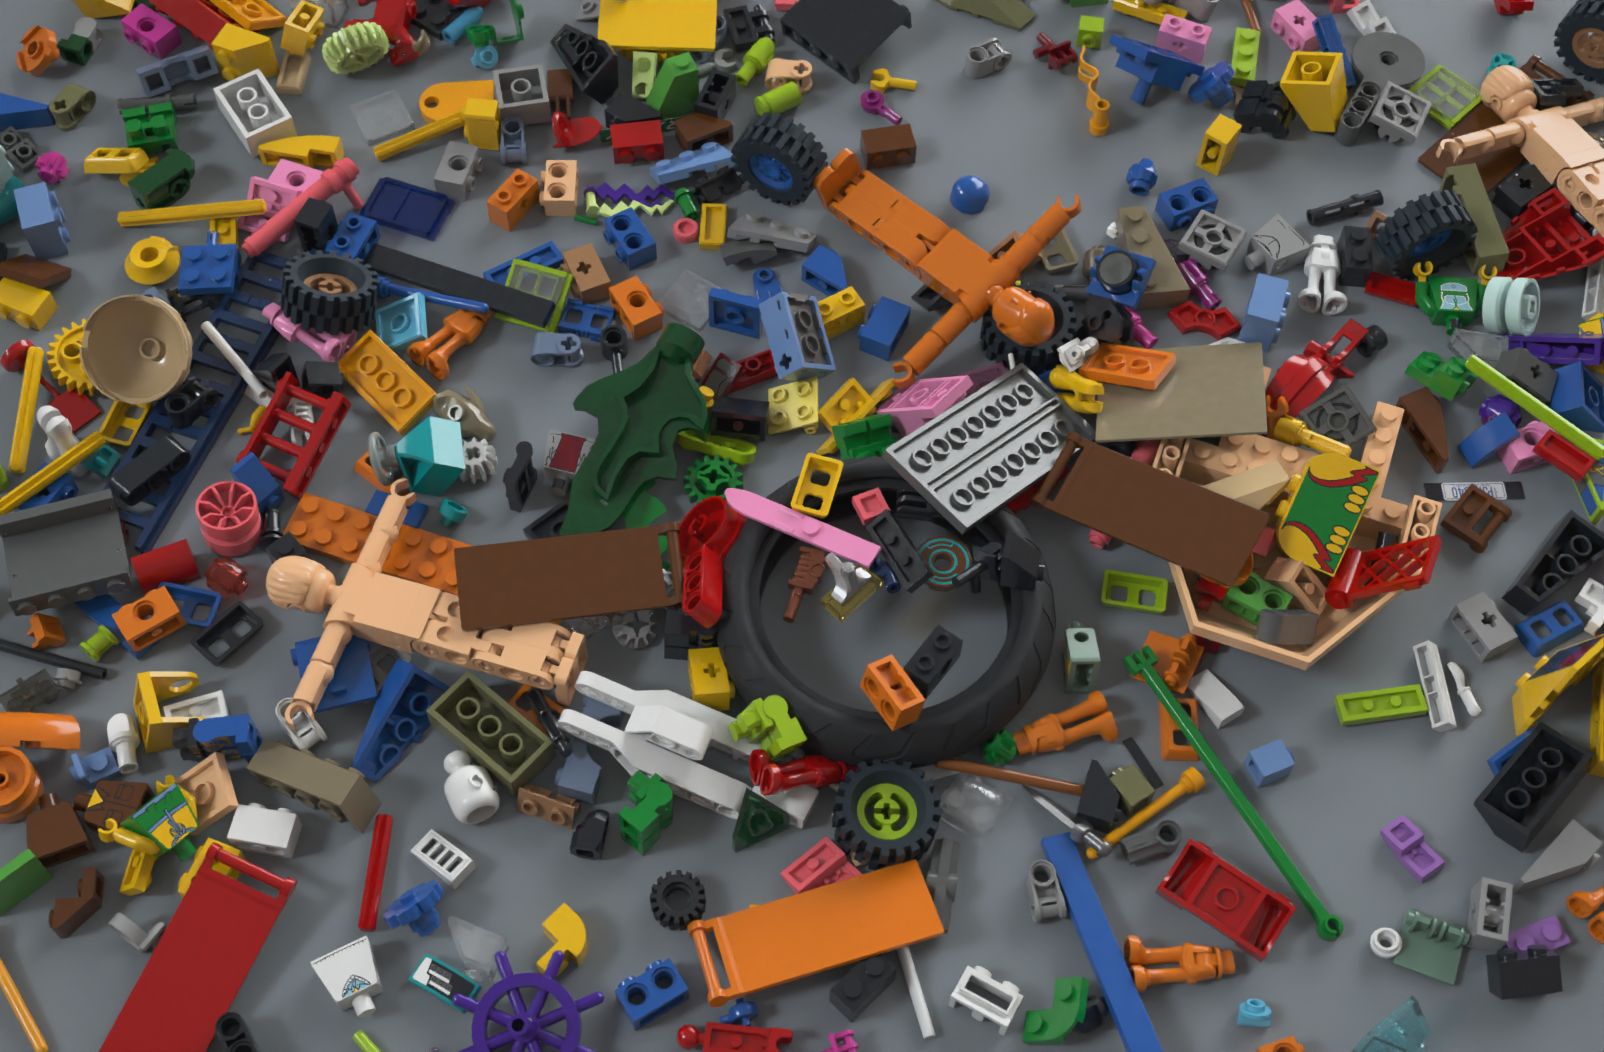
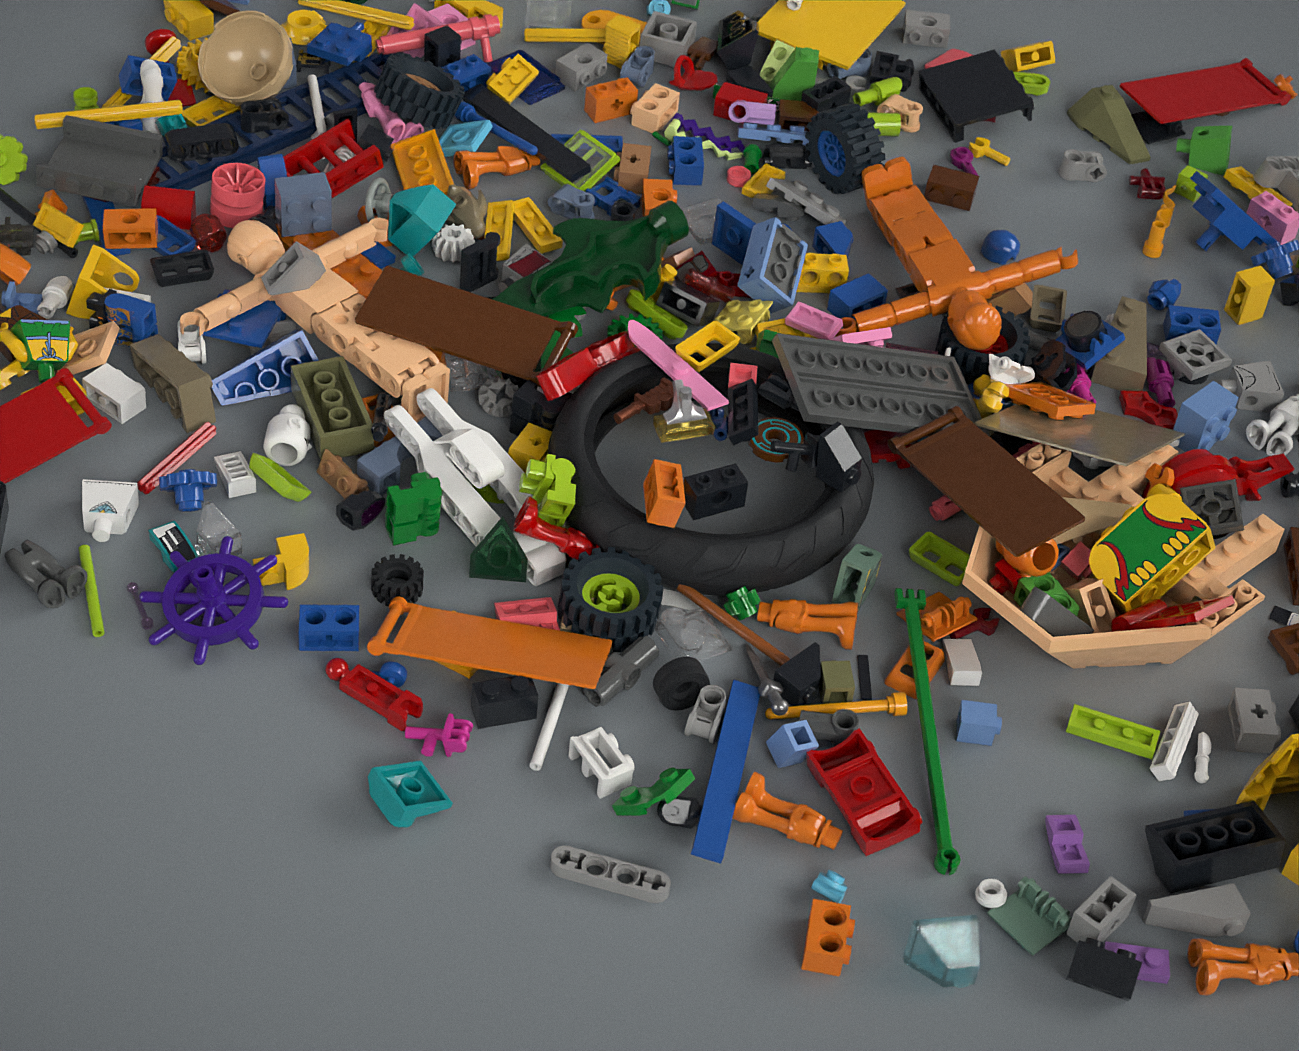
camera: 25 degrees right, 15 degrees down
(23, 417) = (131, 80): none -> blue brick
(71, 654) = (58, 225): none -> yellow tile
(310, 502) = (303, 204): none -> sand blue brick
(369, 607) = (294, 271): none -> light grey slope
(404, 224) = (512, 79): none -> yellow bracket
(491, 844) = (278, 478): none -> lime piece
(506, 418) = (500, 220): none -> yellow plate
(535, 395) = (535, 226): none -> yellow plate
(663, 151) = (755, 112): none -> lavender piece
(746, 386) = (709, 285): none -> clear red pin
(871, 384) = (813, 321): none -> bright pink plate
(1006, 874) = (680, 683): none -> black tyre
(1138, 884) = (791, 743): none -> medium blue brick

